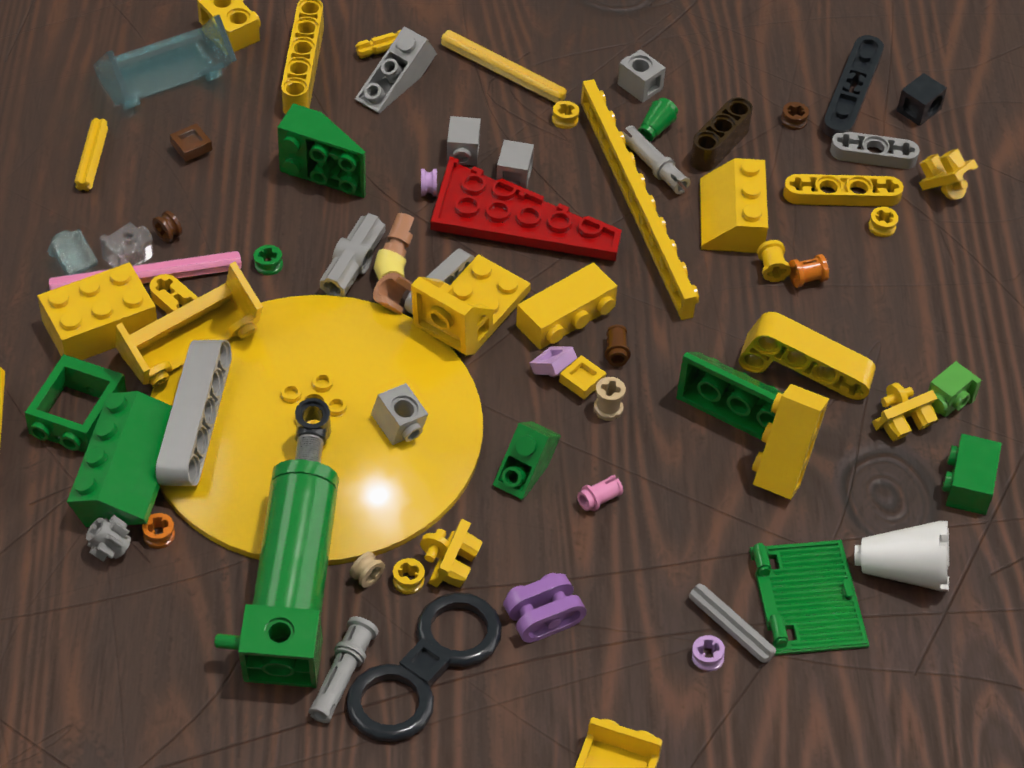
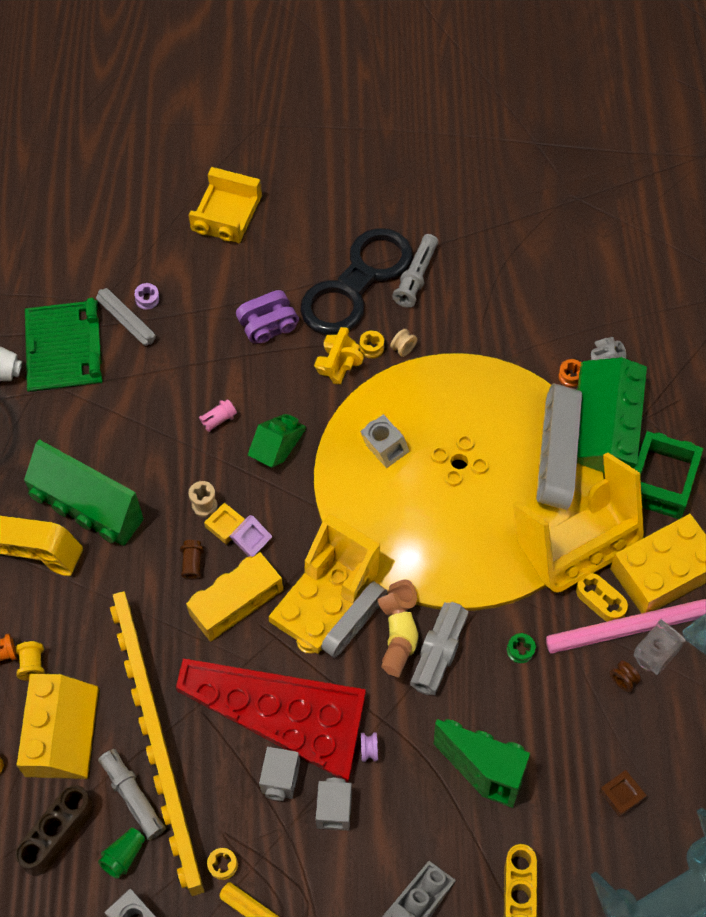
camera: 175 degrees left, 10 degrees up
(283, 624) = (460, 318): green piece -> none
(789, 440) = (53, 428): yellow brick -> none

